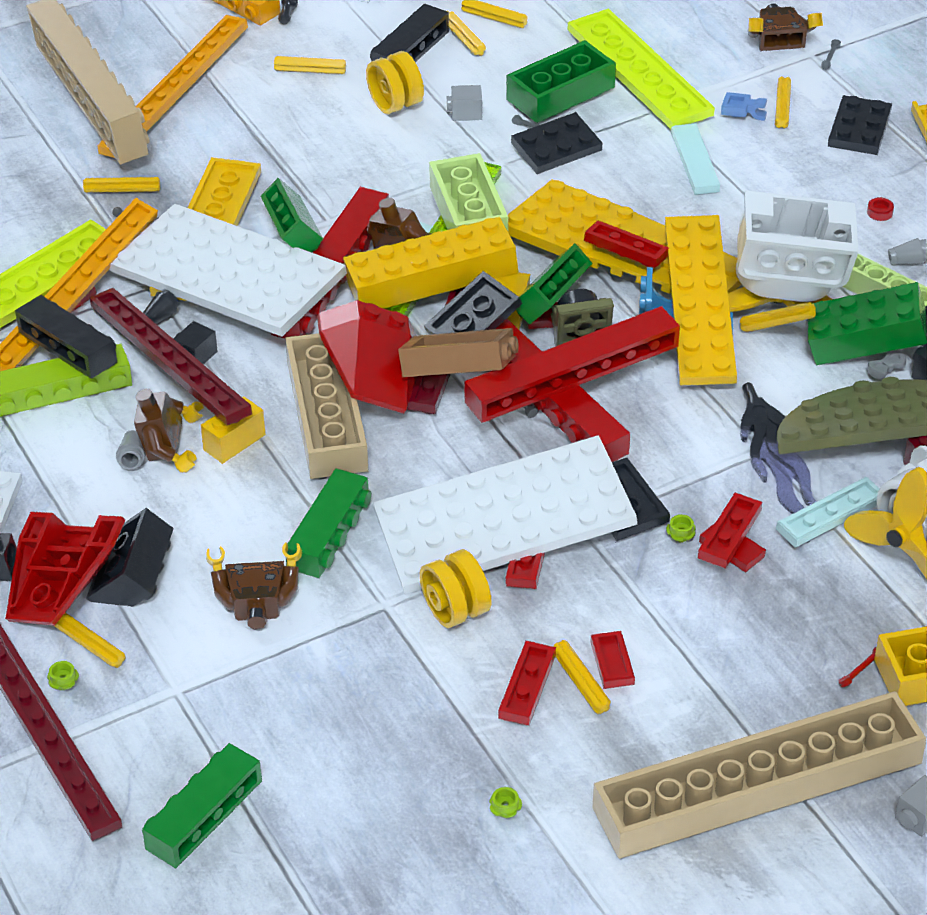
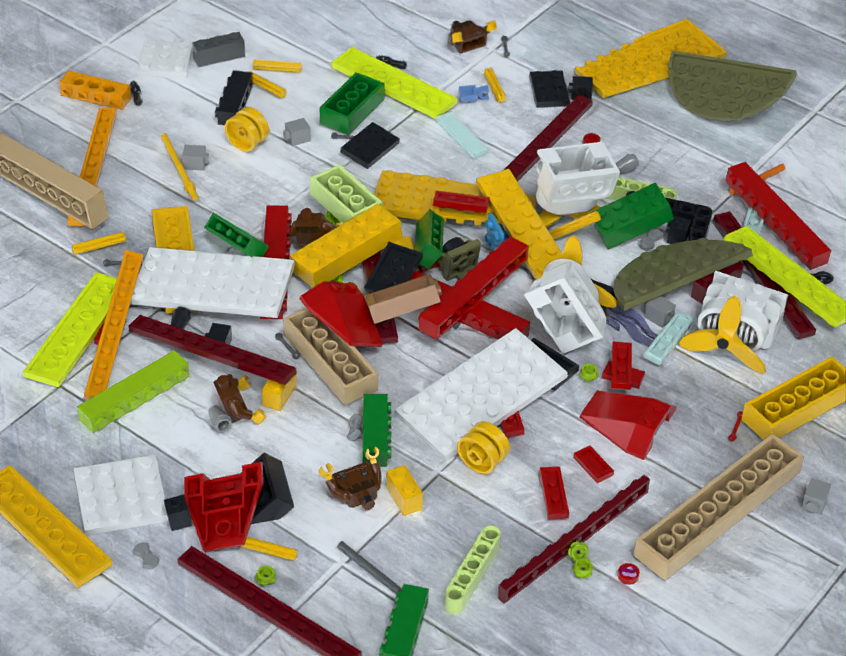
camera: 25 degrees left, 0 degrees up
(66, 336) = (138, 355): black brick -> none
(206, 704) = (369, 567): none -> dark grey bar
(280, 364) = (279, 336): none -> dark grey hinge
(282, 139) = (188, 185): none -> yellow bar
(305, 64) = (176, 129): yellow axle -> none
(305, 506) = (354, 423): none -> light grey piece
(309, 104) = (195, 157): none -> light grey brick
(315, 616) = (404, 490): none -> yellow brick
(344, 754) = (472, 569): none -> yellowish green beam
(511, 767) = (572, 552): none -> lime plate
(516, 755) = (581, 532): none -> dark red plate
(569, 831) = (628, 573): none -> red tile
(582, 677) = (583, 480): yellow axle -> none
(651, 38) = (401, 64): none -> black piece
(693, 414) = (569, 300): none -> white brick
(700, 610) = (627, 419): none -> red wedge
(835, 181) = (549, 135): none -> dark red plate
(837, 468) = (659, 311): none -> light grey brick
(905, 133) = (581, 86): none -> black brick

